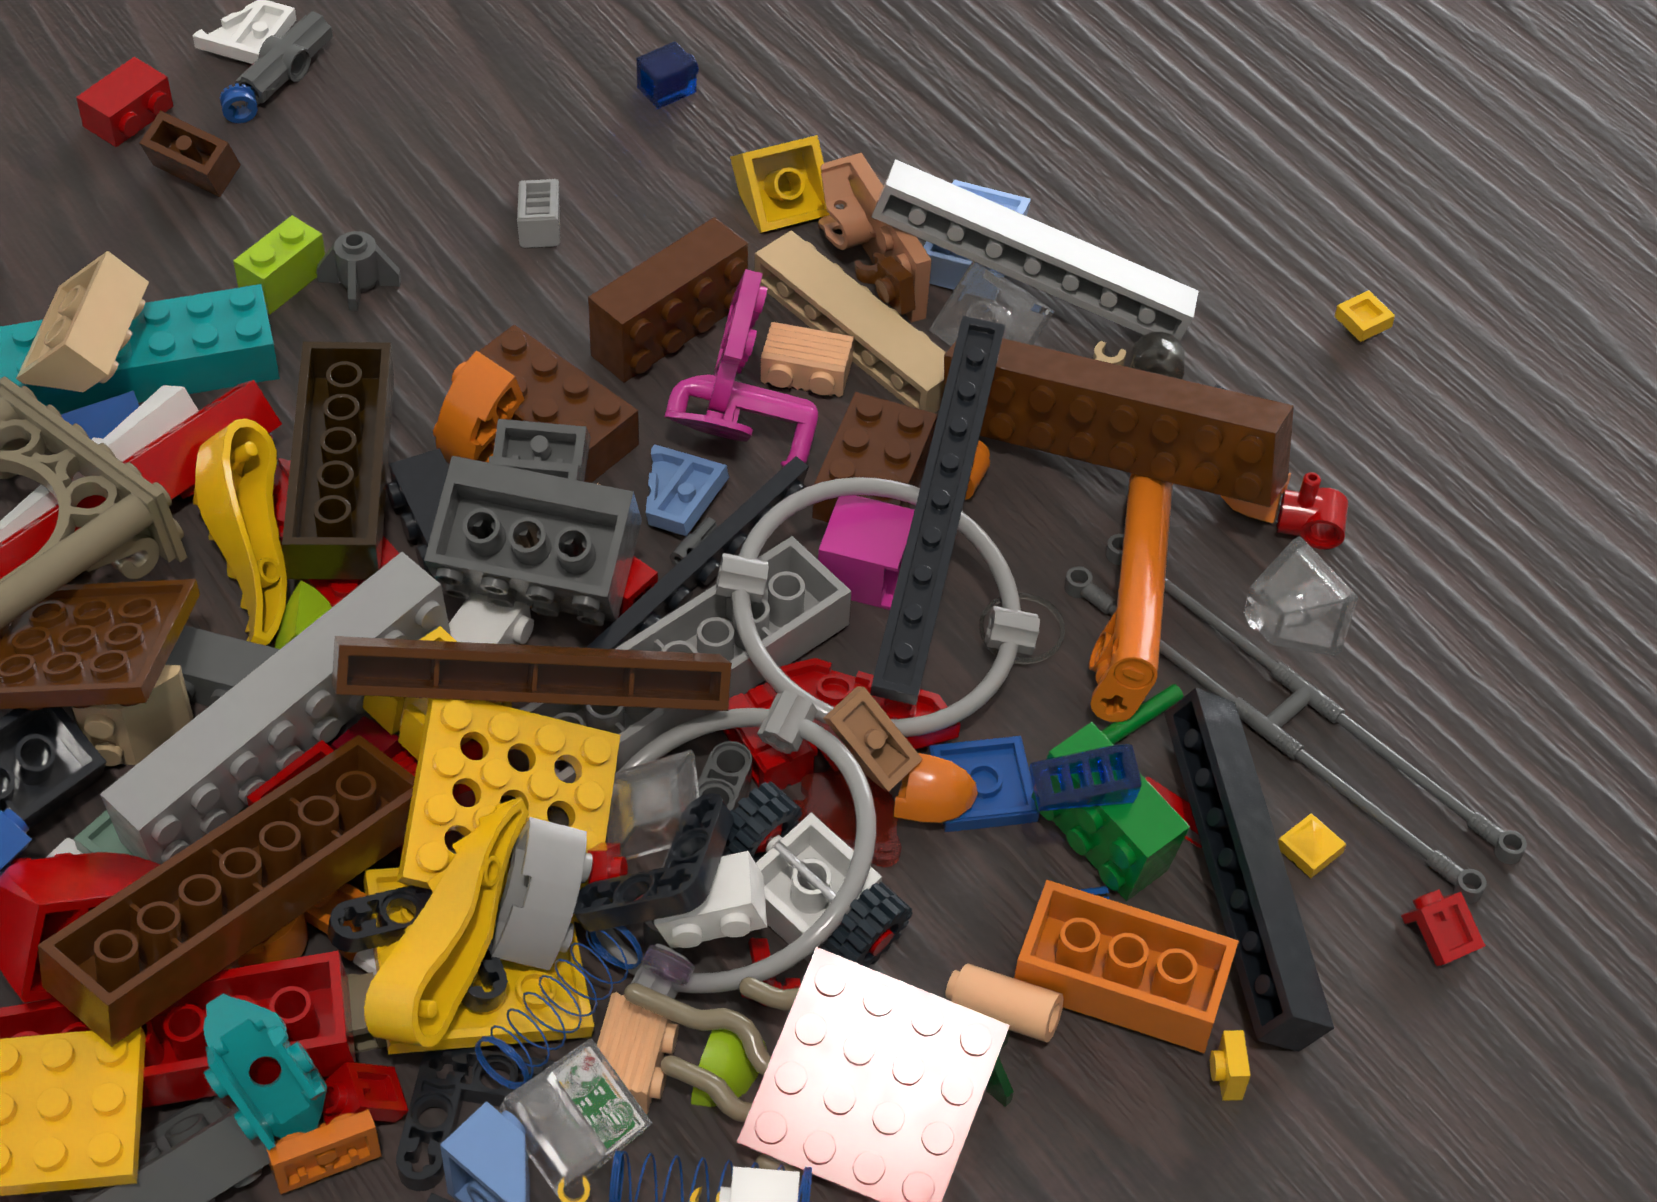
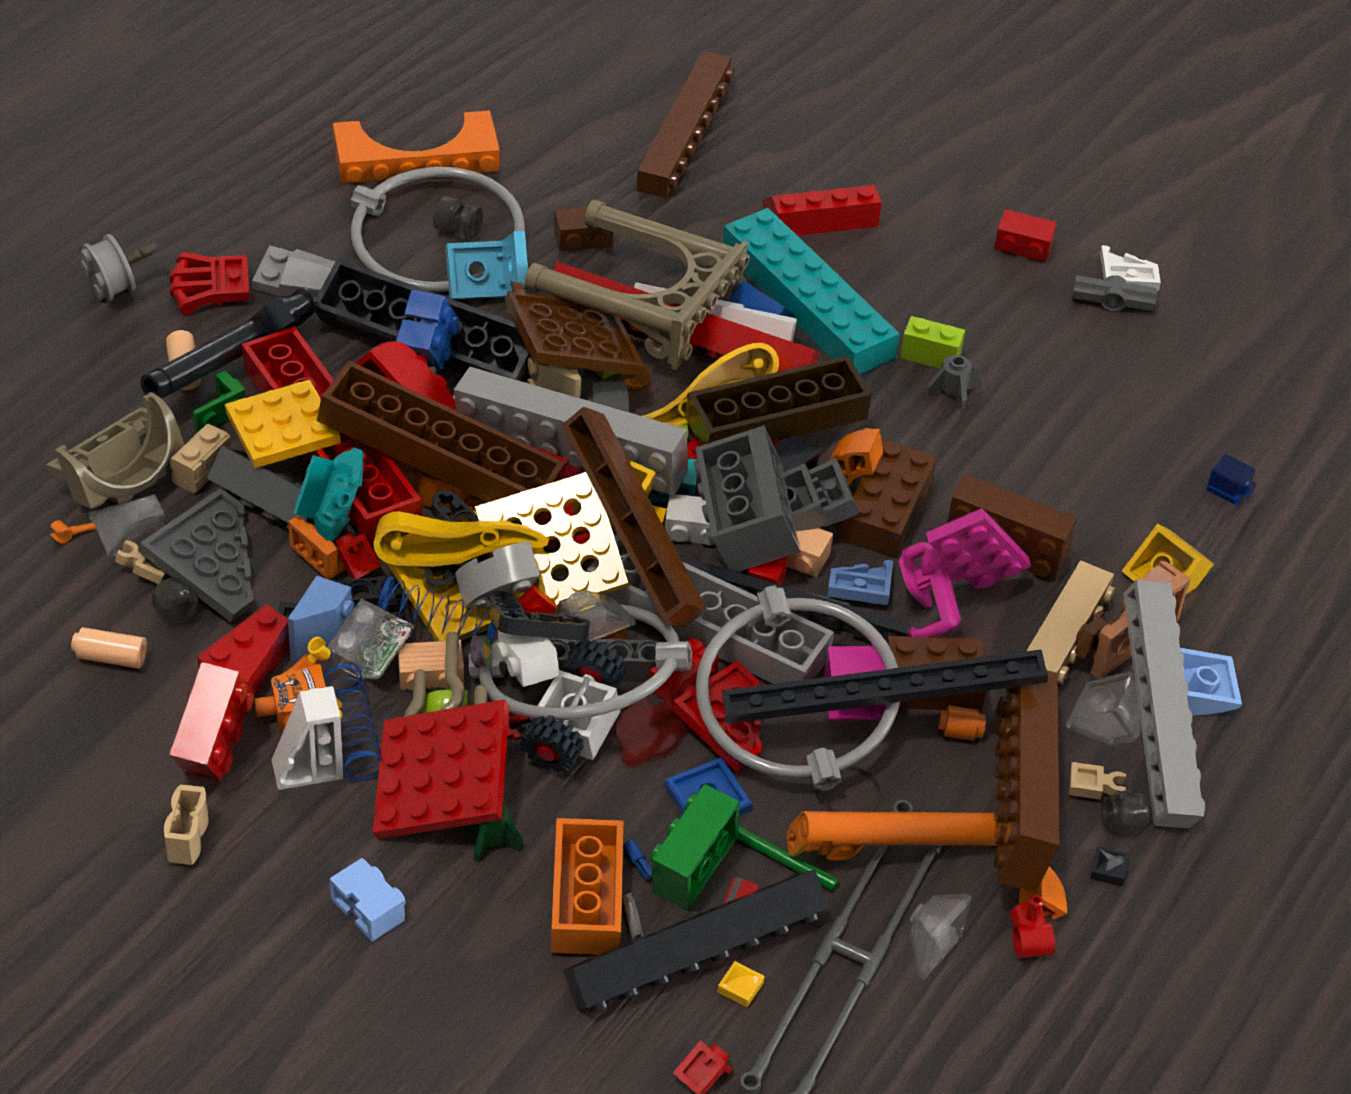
camera: 70 degrees right, 5 degrees down
(85, 327) = (806, 264): tan slope -> none
(190, 153) = (994, 274): reddish brown brick -> none
(234, 94) = (1059, 285): blue bush -> none
(537, 216) = (1061, 453): light grey slope -> none
(806, 359) = (1010, 617): light nougat brick -> none
(872, 738) = (680, 699): medium nougat slope -> none
(935, 791) = (676, 758): orange brick -> none
(1021, 1005) = (537, 834): light nougat brick -> none
(1084, 763) = (691, 826): clear blue slope -> none
(1231, 1065) = (541, 963): yellow plate -> none
(1364, 316) = (1257, 935): yellow plate -> none

